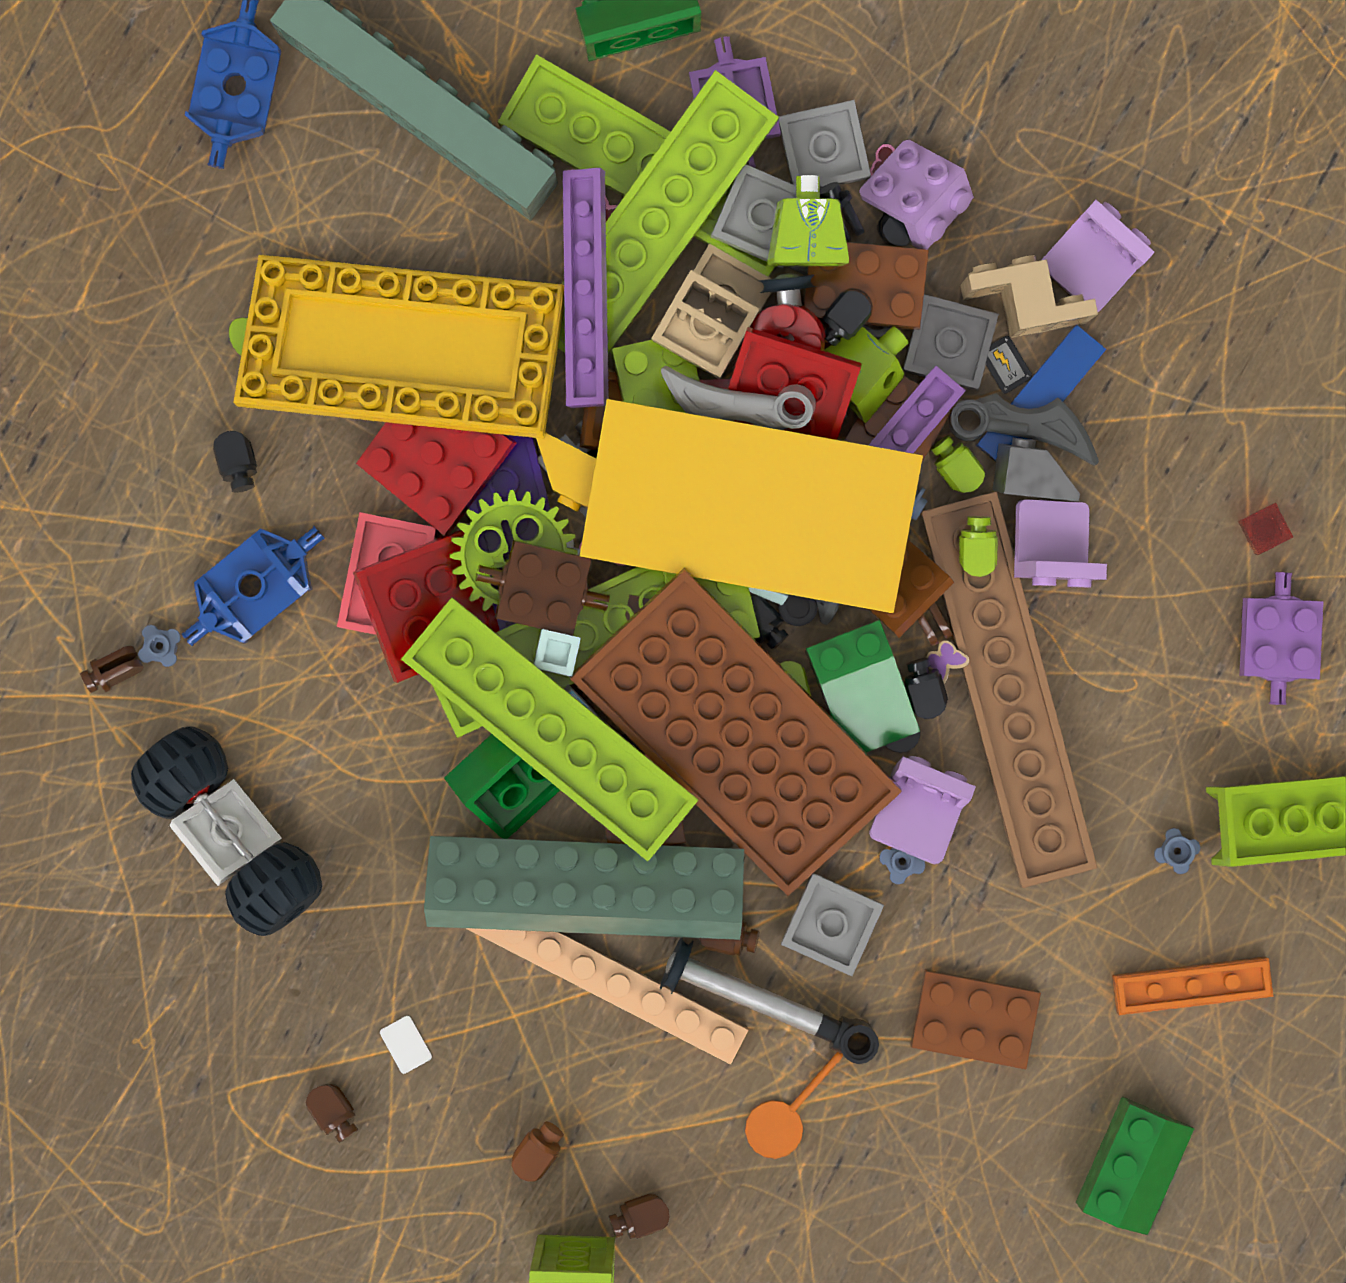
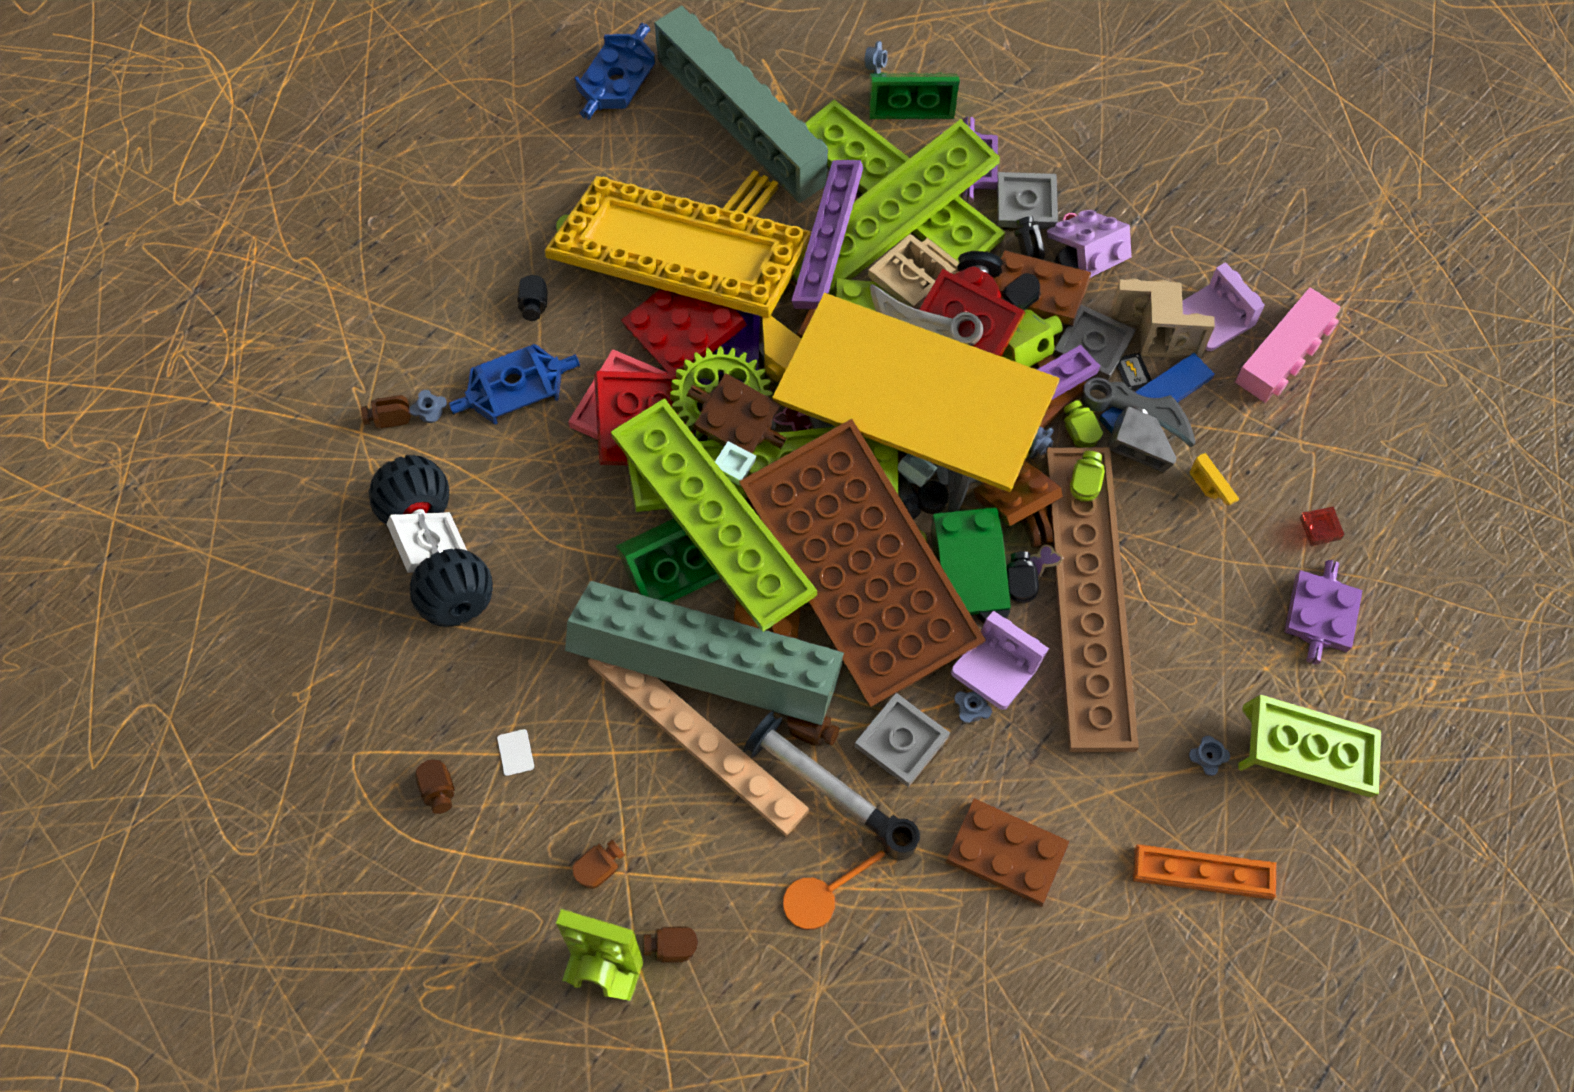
camera: 10 degrees right, 25 degrees down
(476, 204) = (753, 178): none -> yellow tile
(750, 211) = (971, 222): light grey plate -> none
(808, 229) = (1005, 230): lime torso -> none
(1054, 544) = (1149, 494): lavender bracket -> none
(1128, 507) = (1211, 480): none -> yellow tile
(1134, 1167) = (1127, 1015): green slope -> none
(1191, 285) = (1287, 345): none -> bright pink brick

